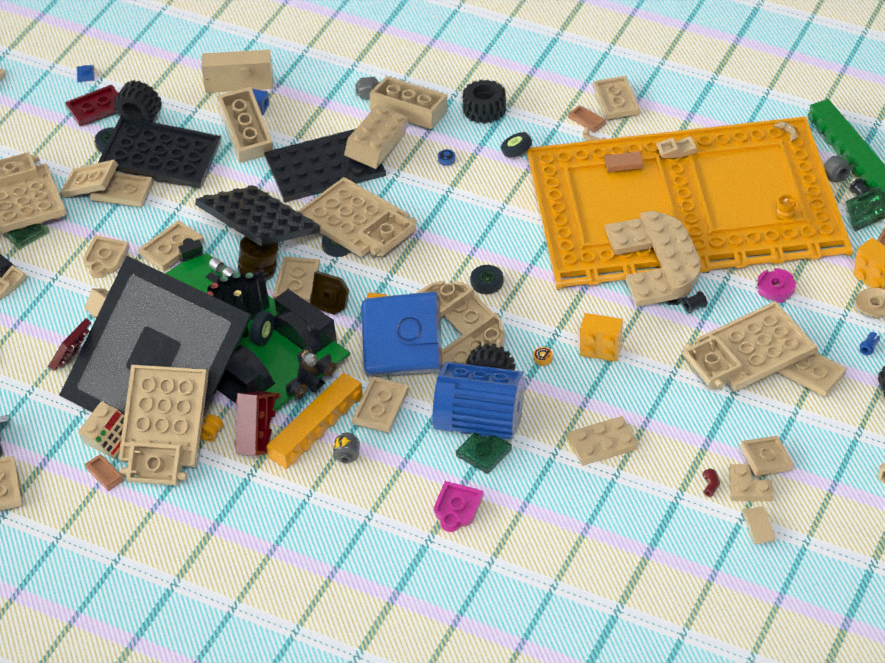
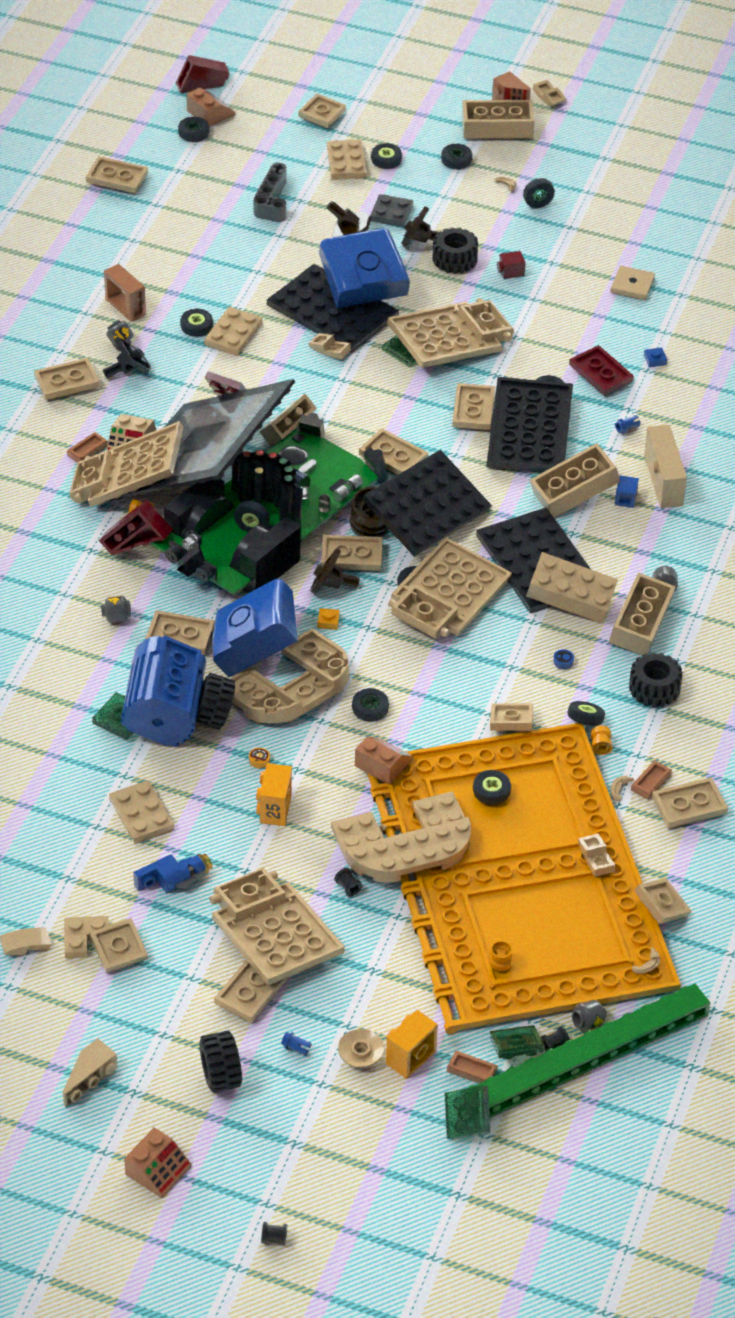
camera: 80 degrees right, 0 degrees up
(89, 178) = (476, 376): tan plate -> none
(104, 255) = (374, 407): tan plate -> none
(138, 101) = (593, 393): black tyre -> none
(170, 97) = (623, 425): none -> blue pin
(314, 420) = (154, 584): light orange brick -> none
(457, 505) = (48, 700): dark pink plate -> none
(517, 187) = (511, 717): none -> tan plate
(545, 139) = (601, 740): none -> light orange wheel
(565, 265) = (381, 759): none -> nougat slope
(599, 209) = (492, 779): none -> black bush
(623, 161) = (565, 807): nougat tile -> none
(682, 415) = (172, 874): none -> blue plate
(713, 480) = (85, 903): dark red arm -> none
(724, 117) = (662, 900): none -> tan plate
(776, 293) = (384, 968): dark pink plate -> none

